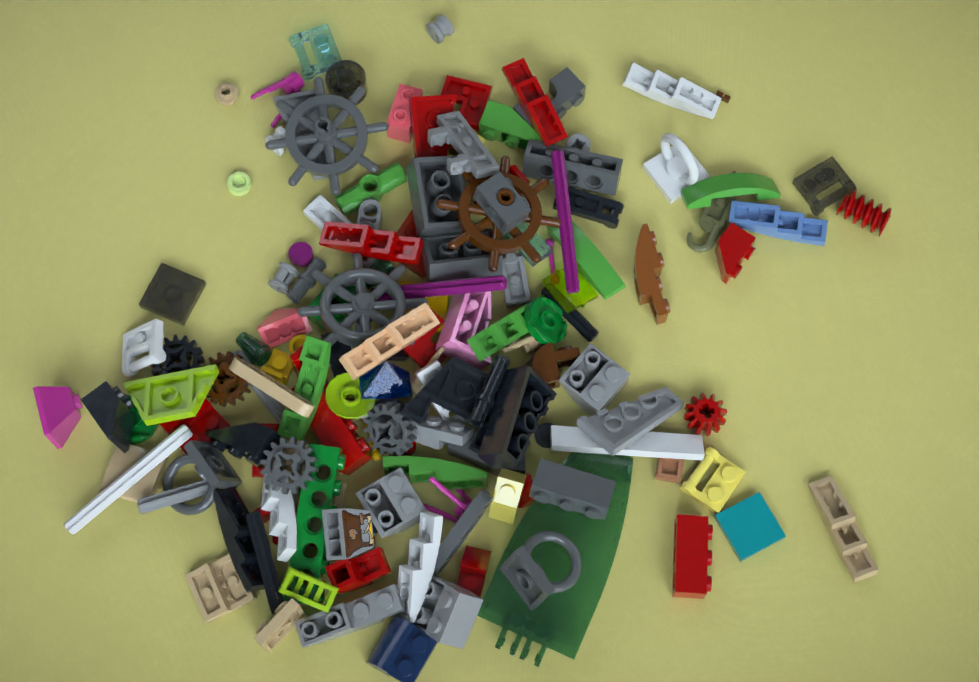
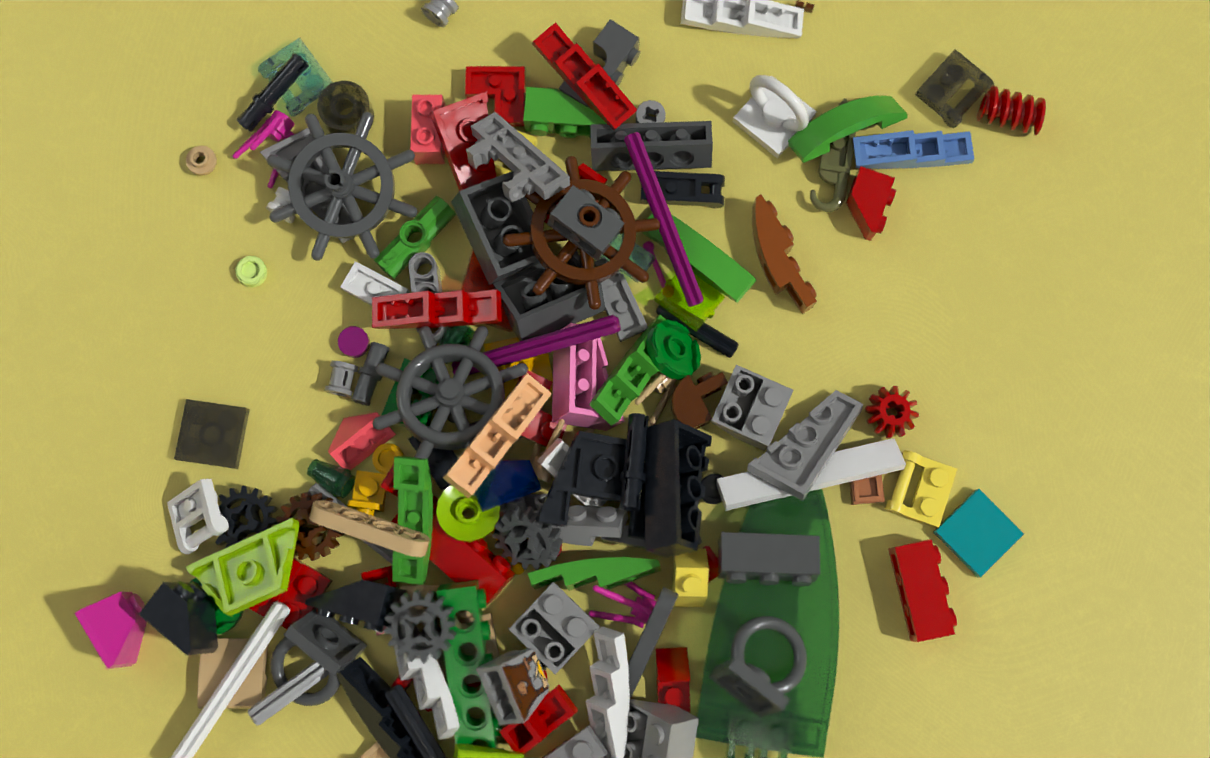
camera: 15 degrees left, 10 degrees up
(295, 57) = (275, 89): none -> black pin
(842, 528) = (1085, 506): tan slope -> none

